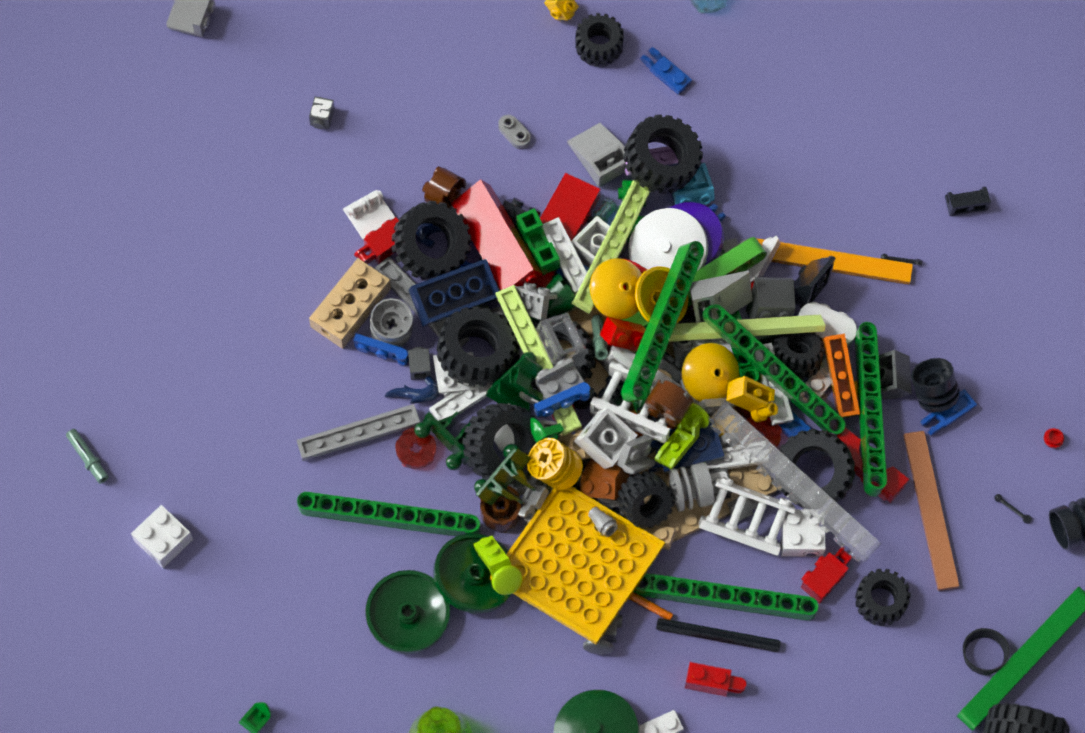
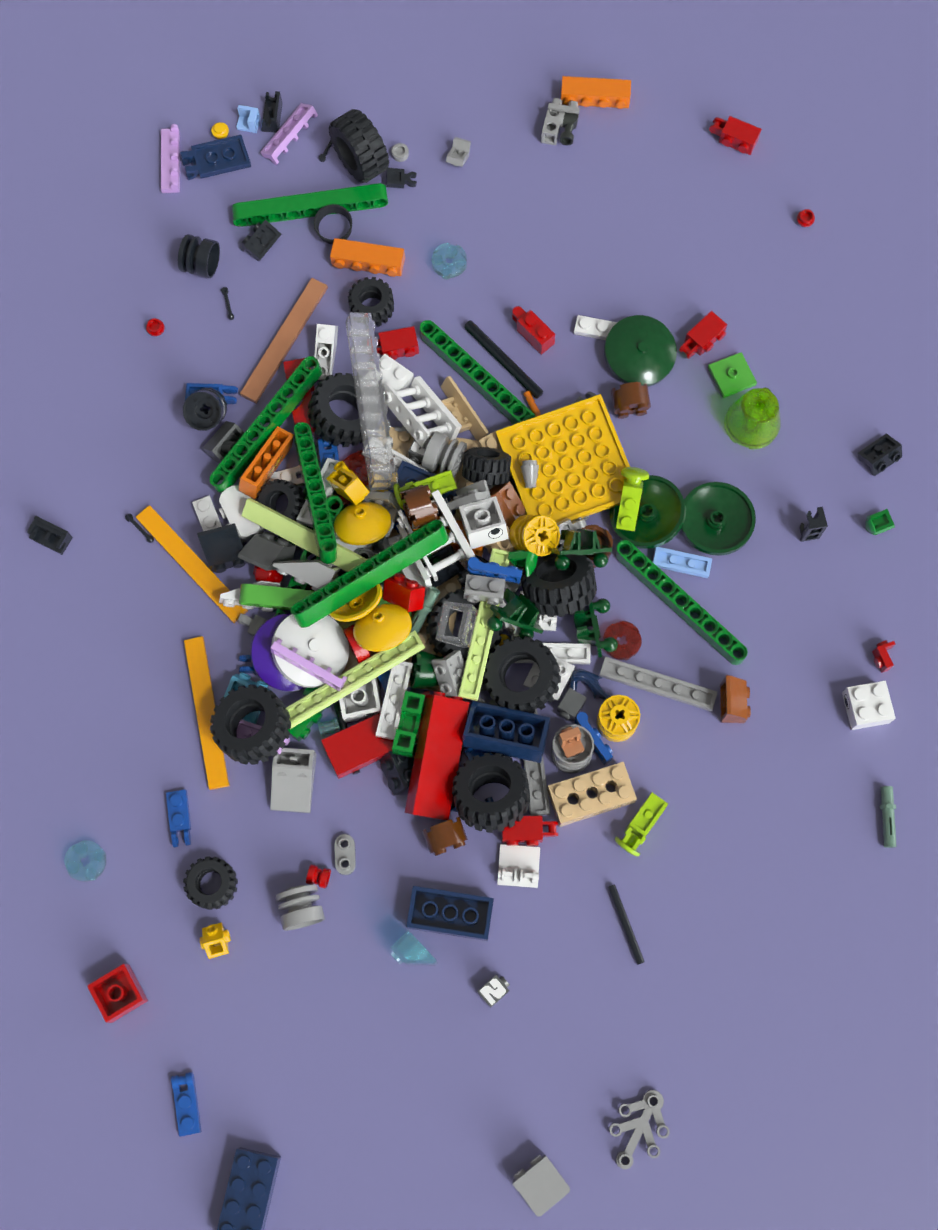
camera: 140 degrees left, 5 degrees up
(142, 99) = (641, 1126): none -> light grey plant
(175, 587) = (881, 657): none -> red bracket
(252, 230) = (626, 924): none -> black bar
(282, 458) = (734, 700): none -> dark orange slope
(291, 290) = (642, 824): none -> lime piece
(313, 661) = (815, 526): none -> black hinge
(375, 384) = (619, 729): none -> yellow wheel
(394, 318) = (570, 741): none -> nougat bracket
(396, 140) = (450, 913): none -> dark blue brick
(402, 93) = (411, 951): none -> clear light blue slope
(411, 553) = (682, 562): none -> light blue plate
(515, 65) = (300, 907): none -> light grey wheel
(521, 100) = (315, 877): none -> red wheel
(567, 669) = (631, 399): none -> reddish brown brick
(654, 220) = (307, 666): none -> lavender hinge
(715, 548) = (462, 410): none -> tan bracket
(732, 171) = (204, 705): none -> light orange tile
(838, 704) = (453, 269): none -> clear light blue plate
(848, 304) = (206, 513): none -> white plate
(885, 524) = (326, 348): none -> white slope
(925, 642) = (367, 257): none -> orange brick
(1038, 588) = (261, 241): none -> black bracket

